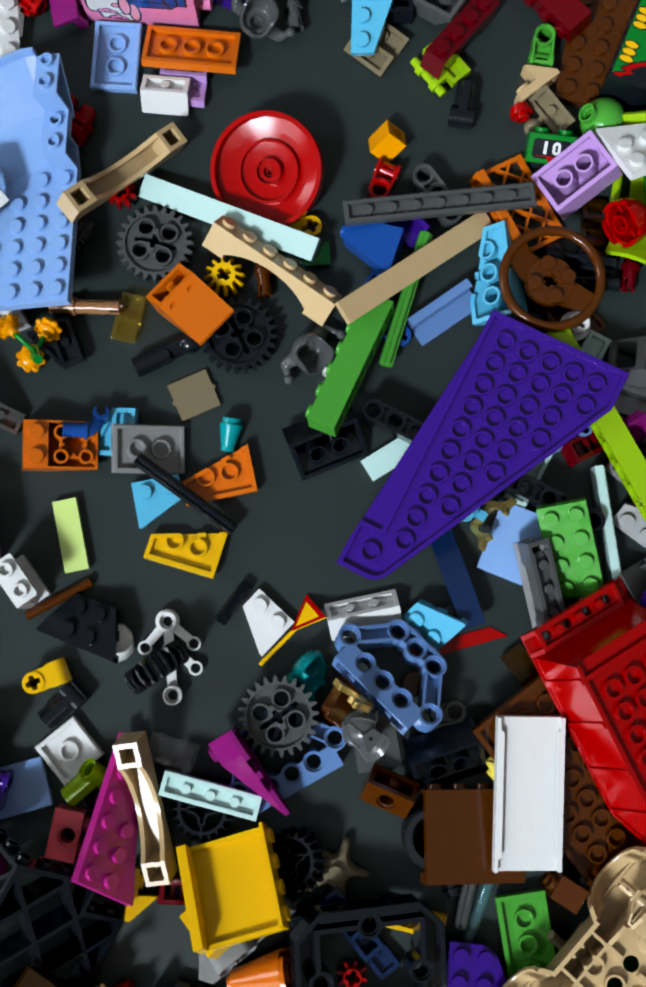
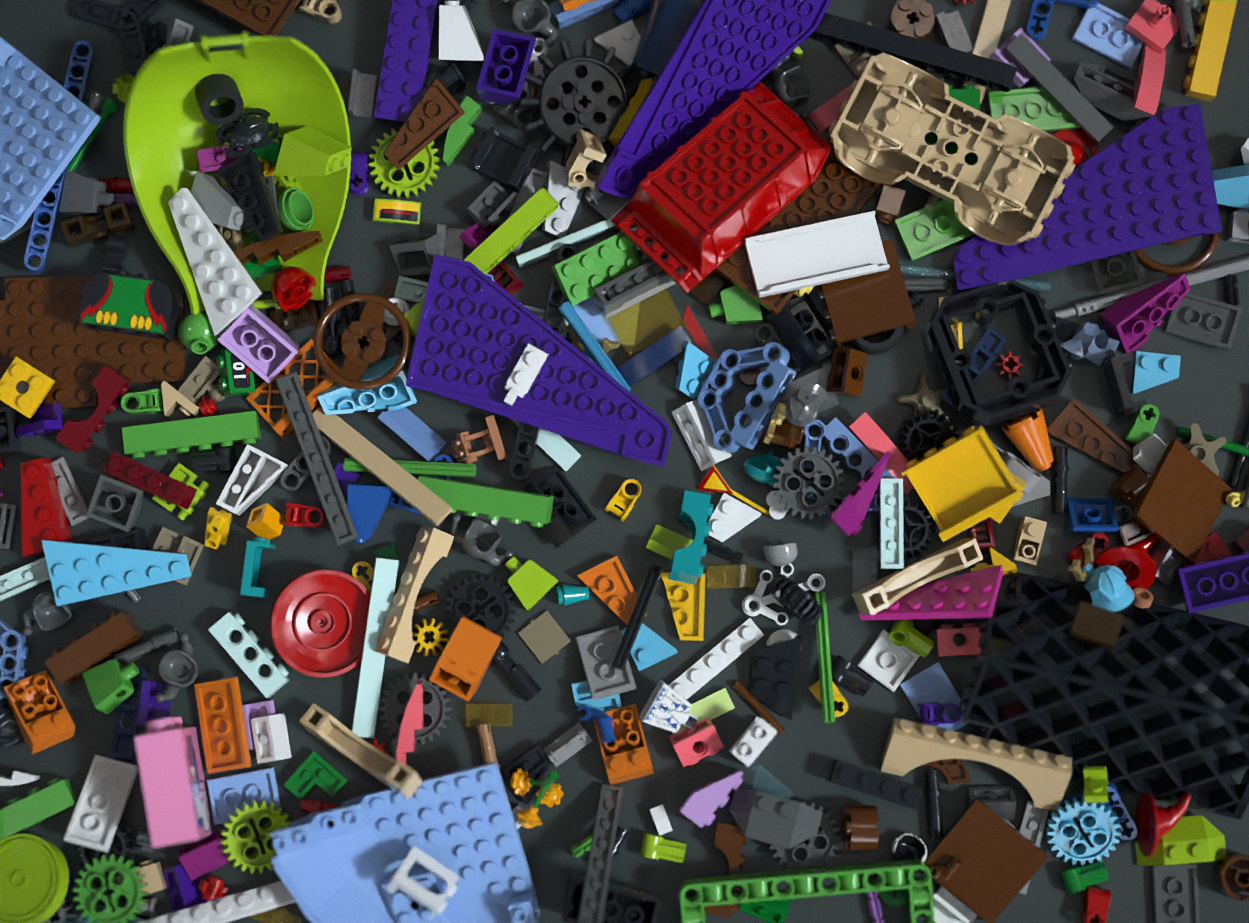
camera: 110 degrees left, 0 degrees up
(39, 522) = (684, 740): none -> coral brick
(67, 32) = (237, 844): none -> lime gear
(76, 389) = (567, 744): none -> light grey hinge
(80, 500) = (667, 709): none -> torso
(84, 681) = (824, 661): none -> bright green axle
(114, 553) = (717, 659): none -> white plate
(119, 132) = (315, 771): none -> green plate
(138, 231) = (412, 720): none -> coral slope
(154, 943) = (1029, 540): none -> tan slope
(203, 605) = (731, 576): none -> clear yellow slope
(212, 665) = (781, 554): none -> light grey hair
(227, 560) = (686, 562): none -> teal arch
(253, 551) = (666, 542): none -> lime panel
(254, 392) = (529, 581): none -> lime torso
(260, 671) = (776, 510): none -> white tile
(261, 82) = (222, 632): none -> light aqua brick
(302, 804) = (877, 444): none -> coral slope
(314, 513) = (623, 500): none -> yellow piece
(340, 113) = (252, 567): none -> teal panel
(393, 91) = (217, 528): none -> yellow hips
(412, 360) = (462, 449): none -> nougat tile
(434, 133) = (250, 479): none -> white wedge
(474, 437) = (524, 373): none -> white hinge
(488, 520) = (591, 343): none -> dark azure axle
(490, 688) = (736, 307): none -> bright green torso
(497, 89) = (191, 433): none -> bright green brick
(498, 587) = (646, 322): none -> clear yellow piece

